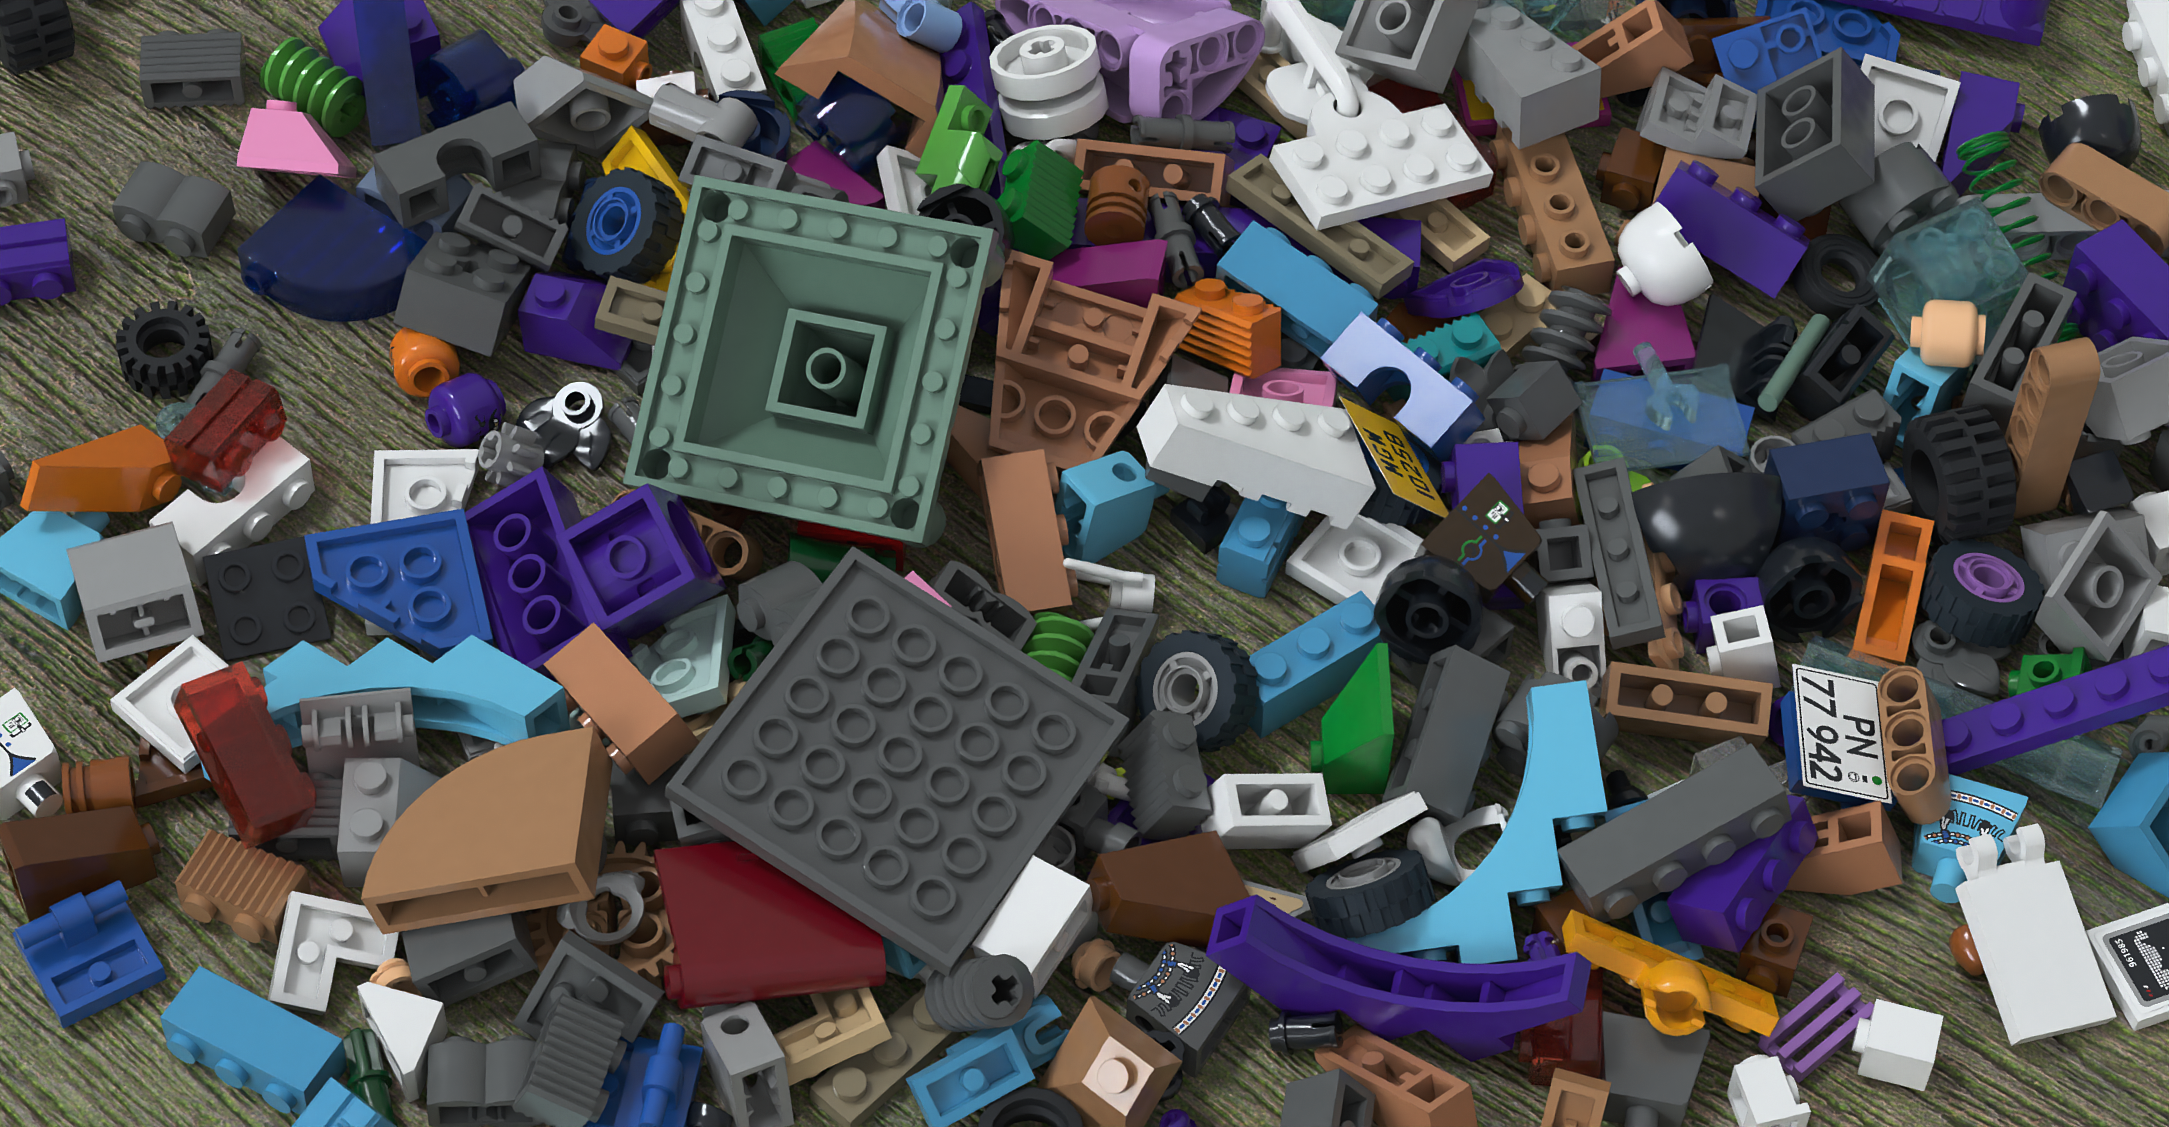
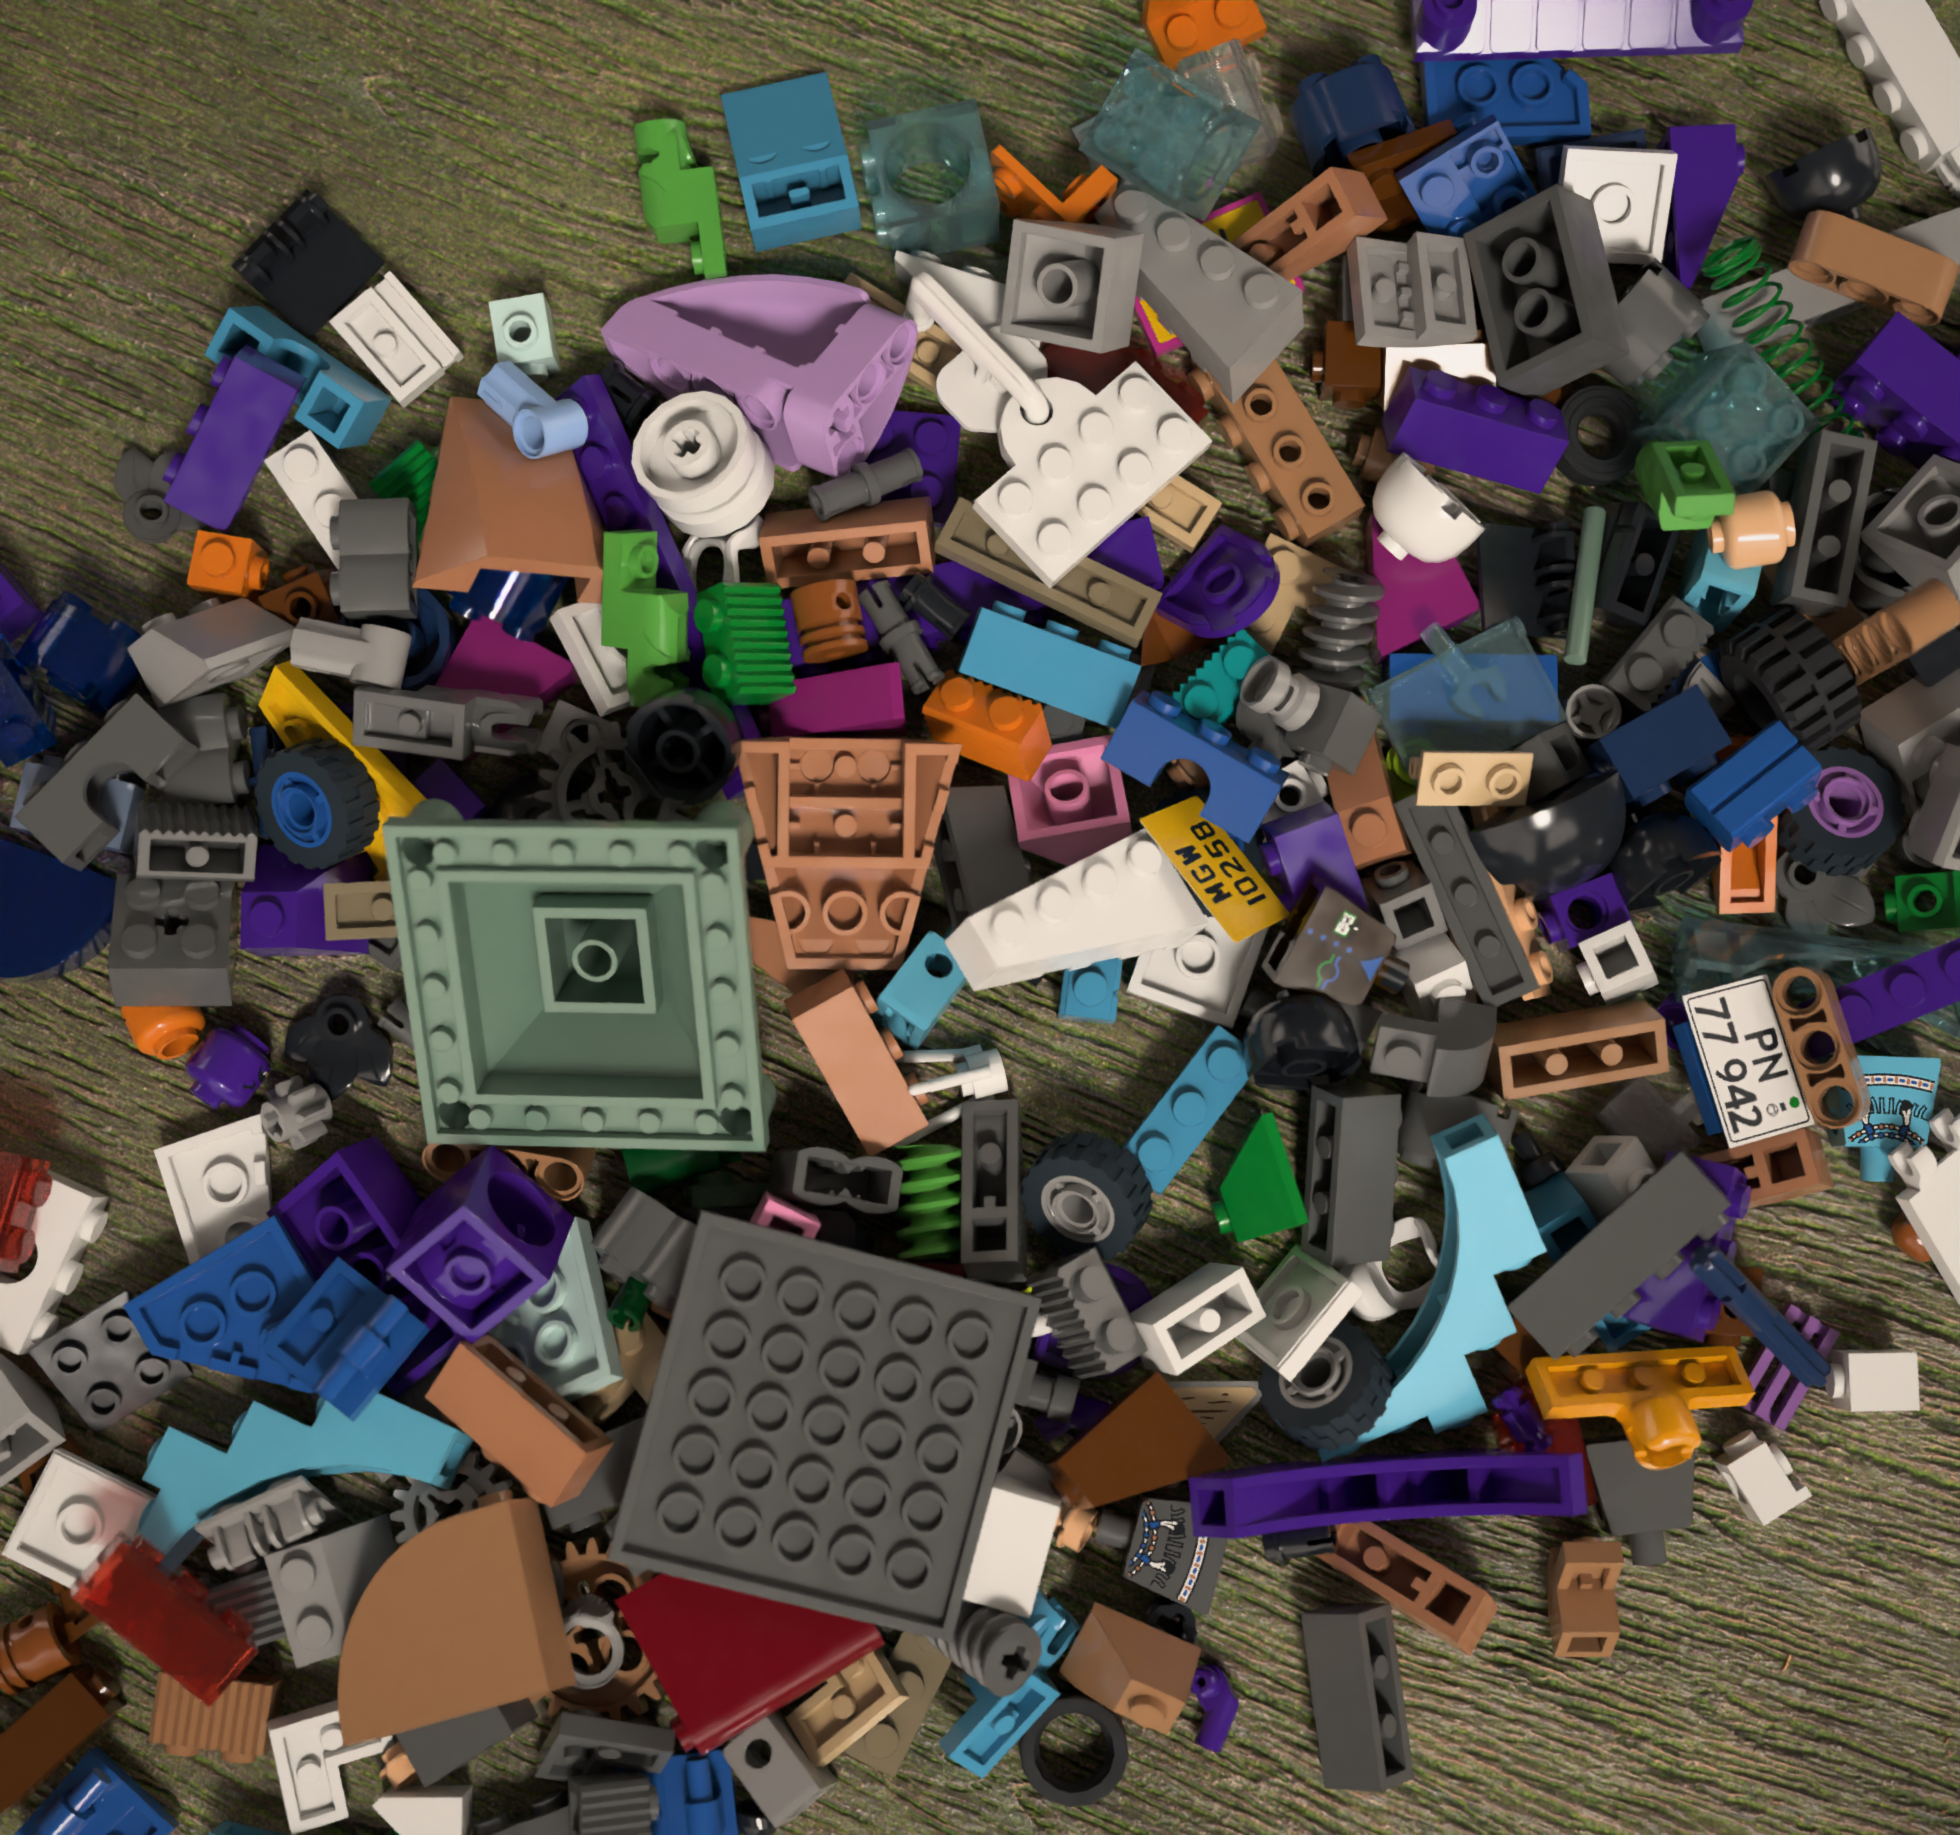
camera: 15 degrees left, 30 degrees up
(494, 599) = (345, 1339): none -> blue plate
(747, 61) = (376, 559): none -> dark grey brick
(1501, 365) = (1275, 691): none -> light grey wheel
(1553, 641) = (1443, 1053): none -> dark grey brick
(1645, 451) = (1471, 778): none -> tan hinge
(1797, 931) = (1760, 1316): none -> dark blue axle
(1893, 281) = (1684, 483): none -> bright green plate
(1902, 529) = (1754, 787): none -> blue brick

